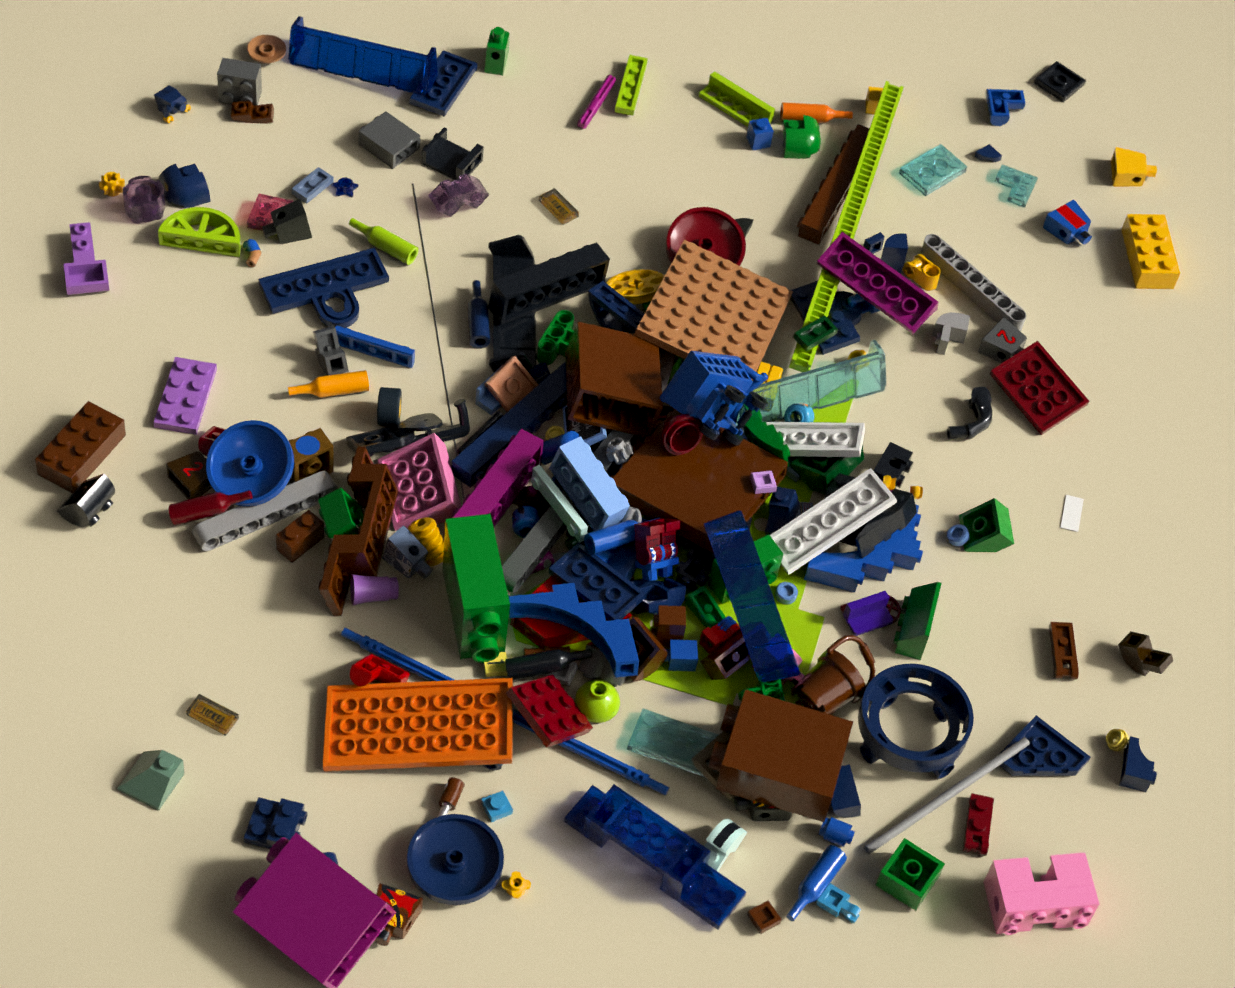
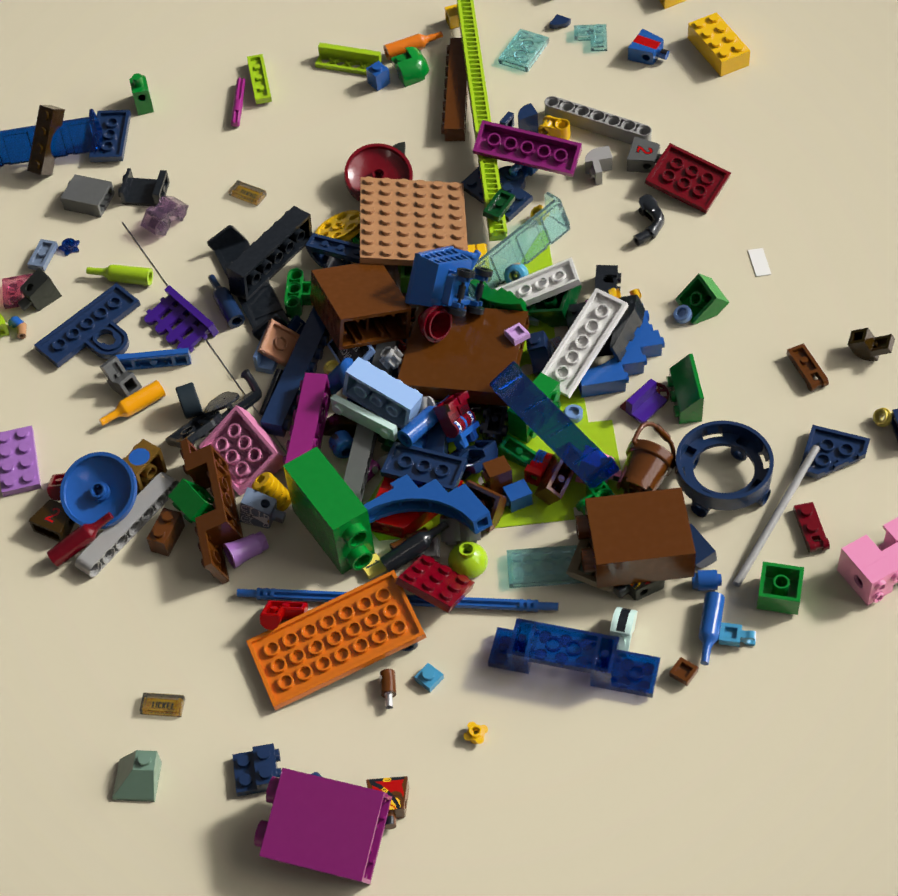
camera: 10 degrees left, 0 degrees up
(382, 42) = (48, 121): none -> dark brown arch
(423, 307) = (183, 307): none -> dark purple fence
(455, 859) = (417, 734): dark blue dish -> none

